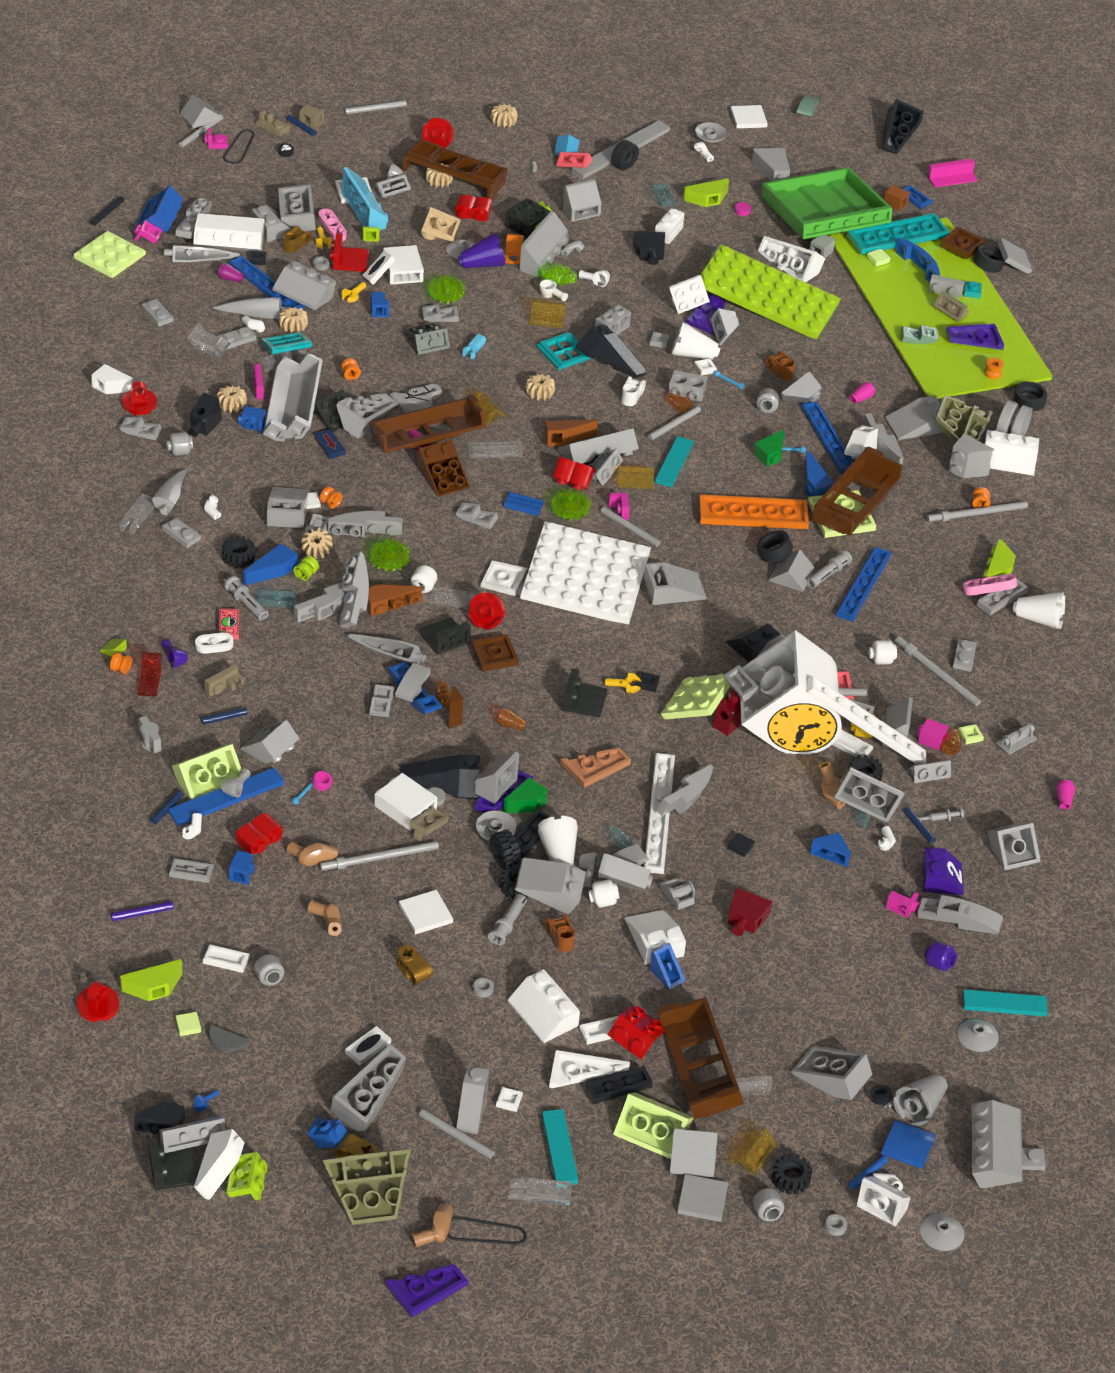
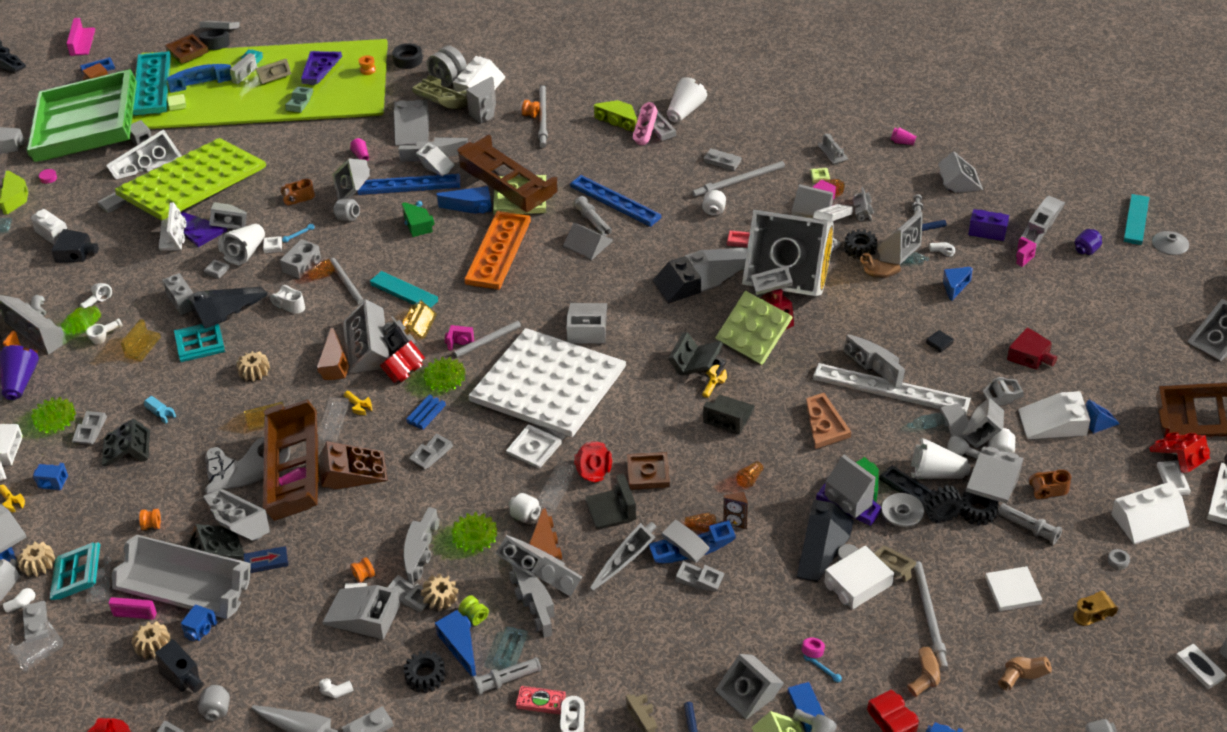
camera: 70 degrees left, 0 degrees up
(523, 466) = (358, 403): none -> yellow bar
(648, 658) = (690, 358): none -> pearl dark grey bracket
(777, 553) = (552, 230): black tyre -> none

